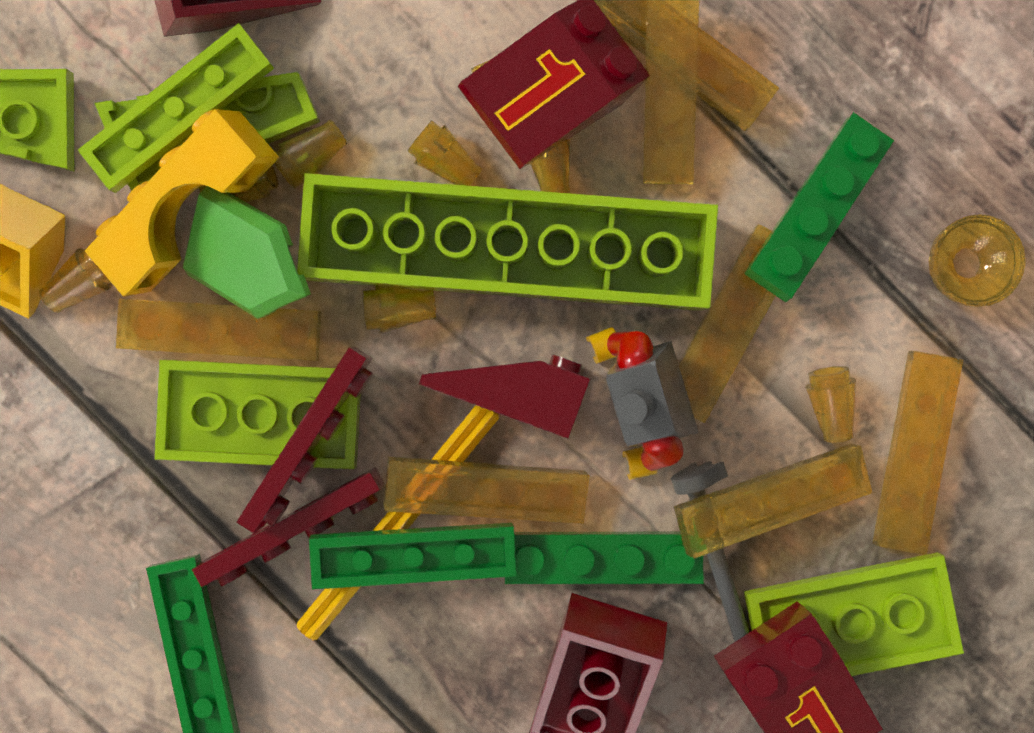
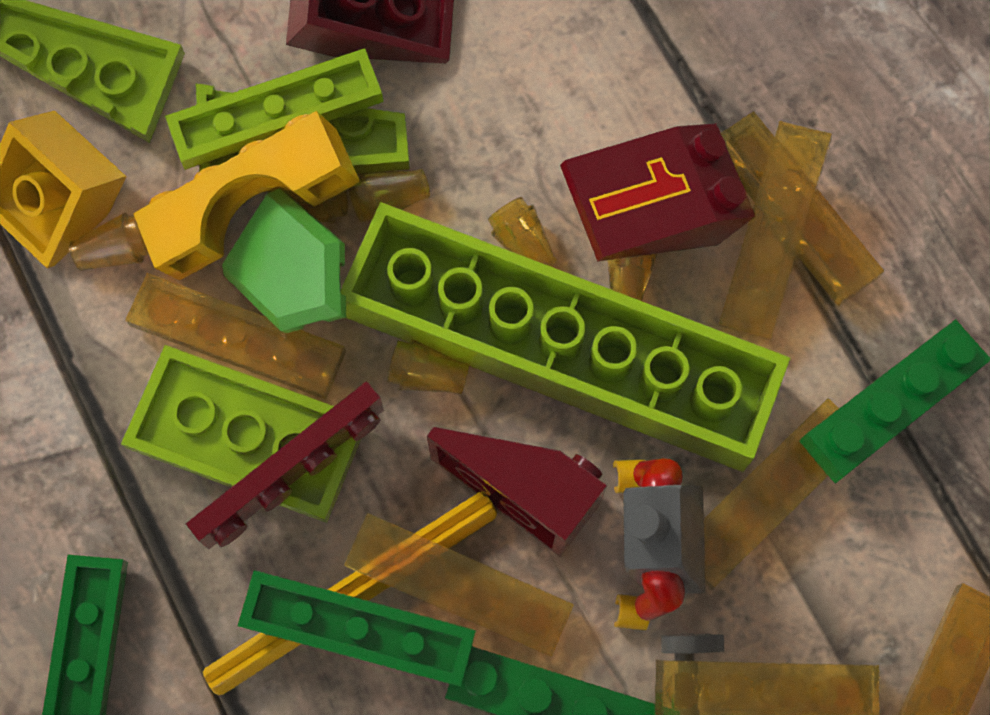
camera: 20 degrees right, 15 degrees down
(273, 541) = (211, 566): dark red plate -> none
(833, 401) = (860, 611): clear yellow cone -> none

